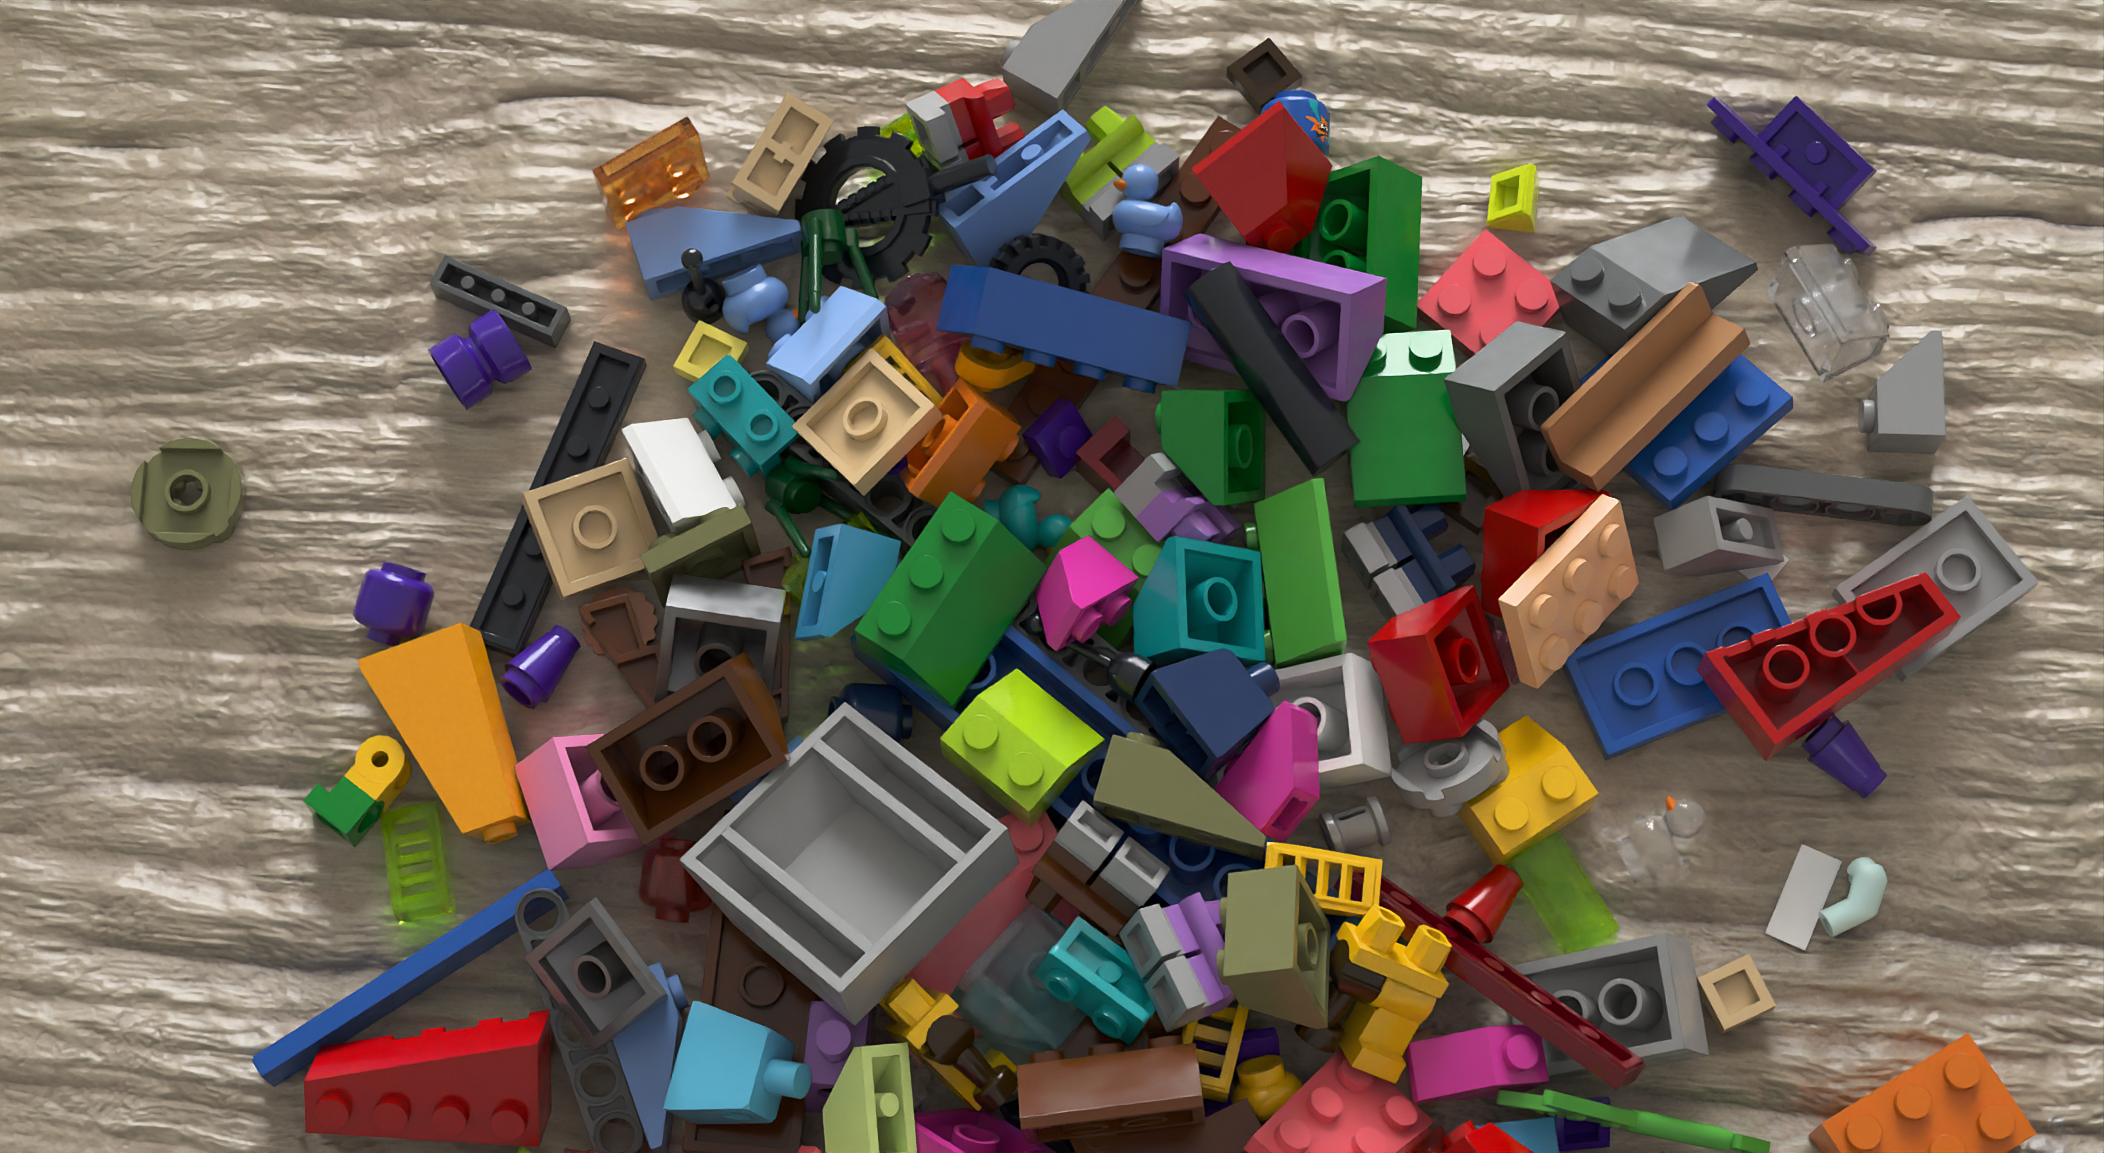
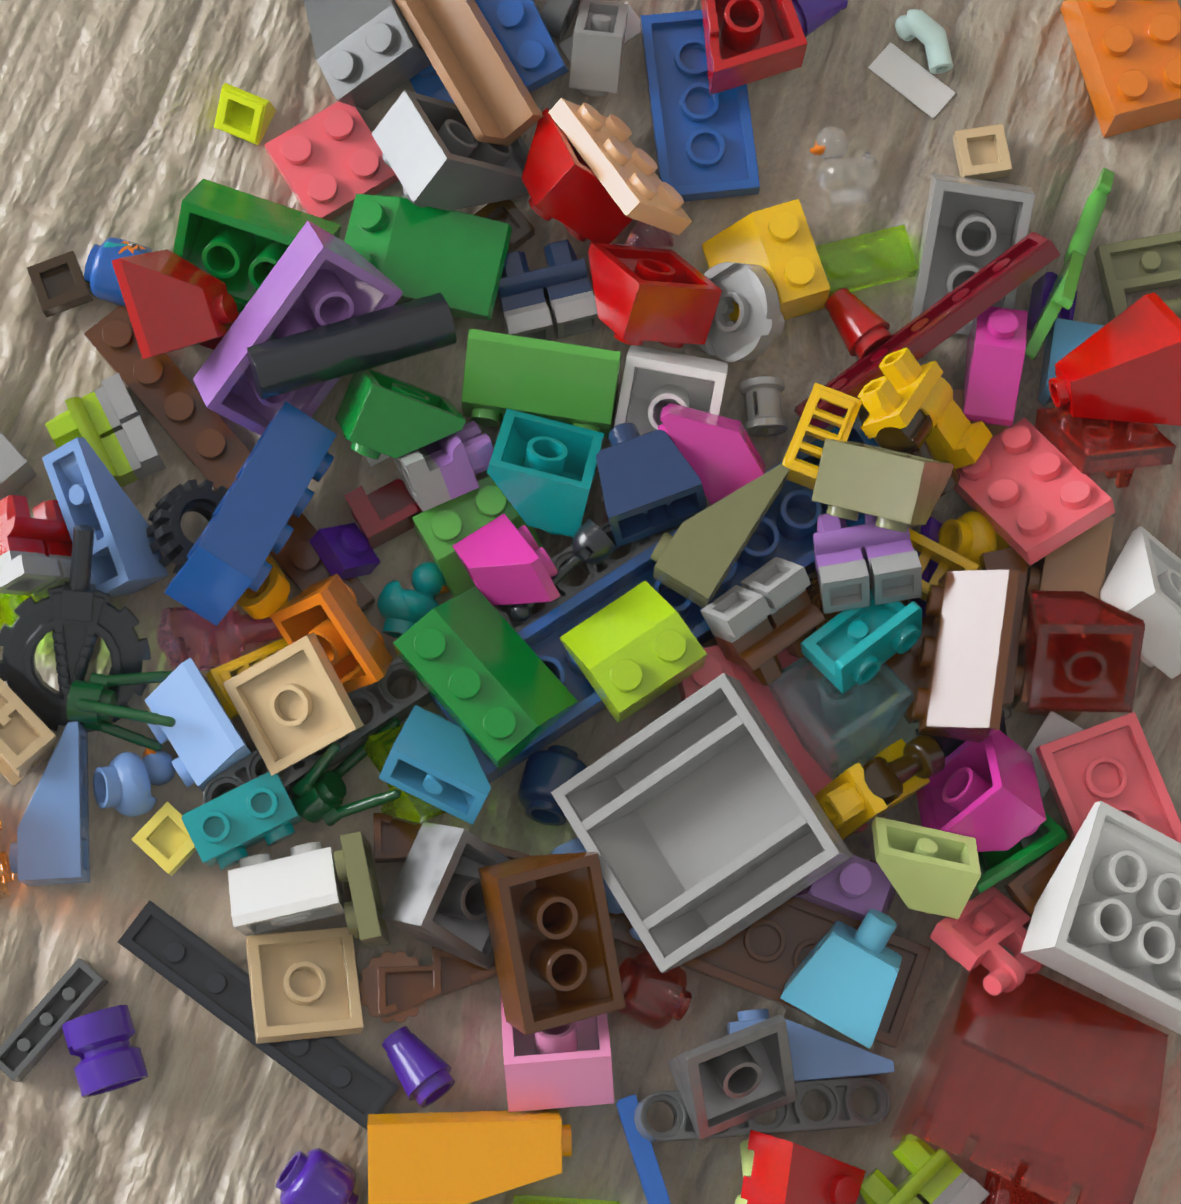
camera: 80 degrees left, 5 degrees up
(700, 291) = (109, 840): black hinge -> none
(1144, 224) = (173, 421): medium blue animal -> none

